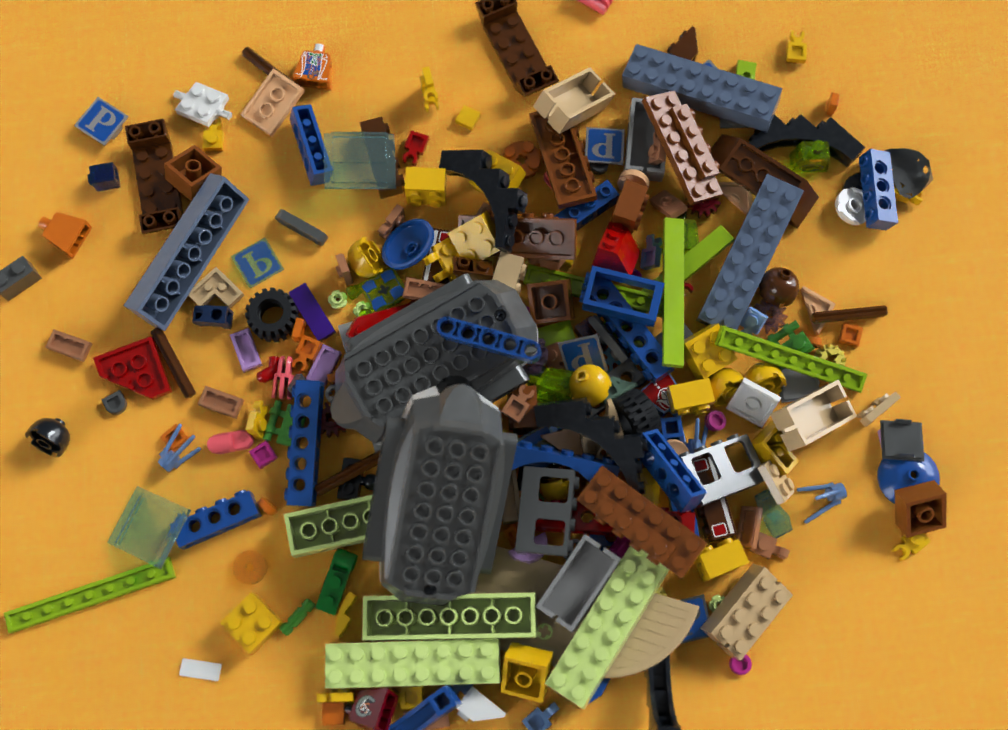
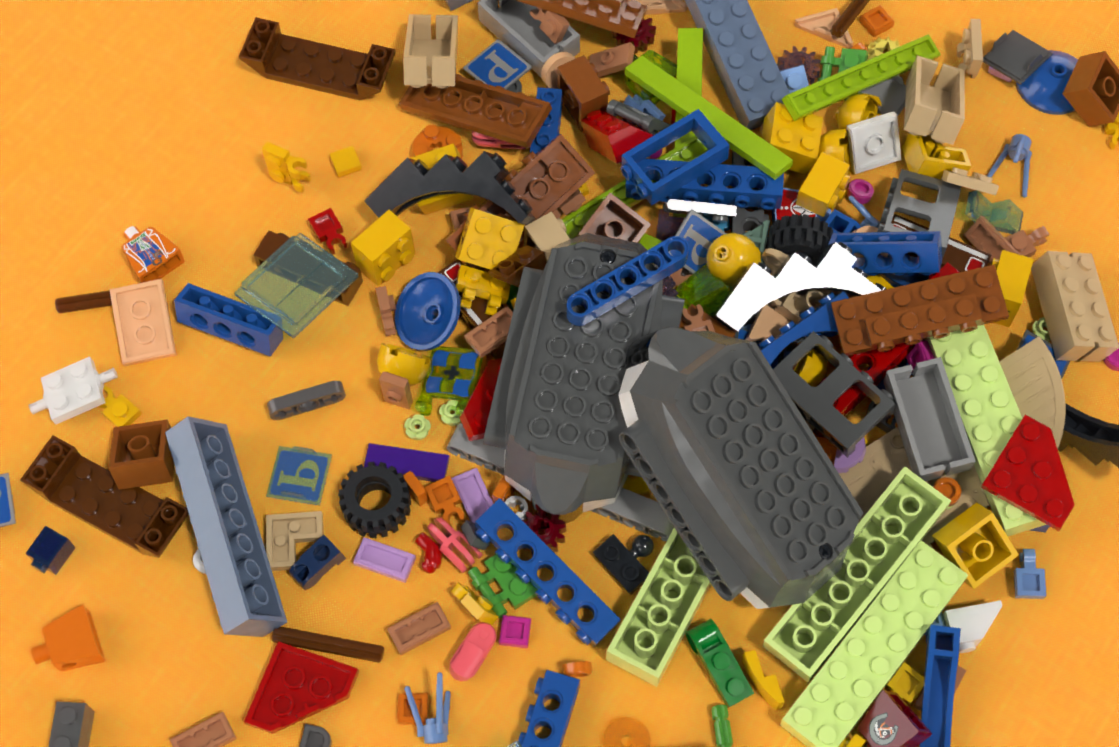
camera: 45 degrees left, 10 degrees down
(347, 474) = (618, 550): reddish brown axle -> none
(547, 629) = (949, 488): none -> orange tile
(588, 673) = (1032, 475): none -> red plate
(638, 252) = (634, 116): none -> dark grey plate
(779, 286) = (782, 32): reddish brown cylinder -> none

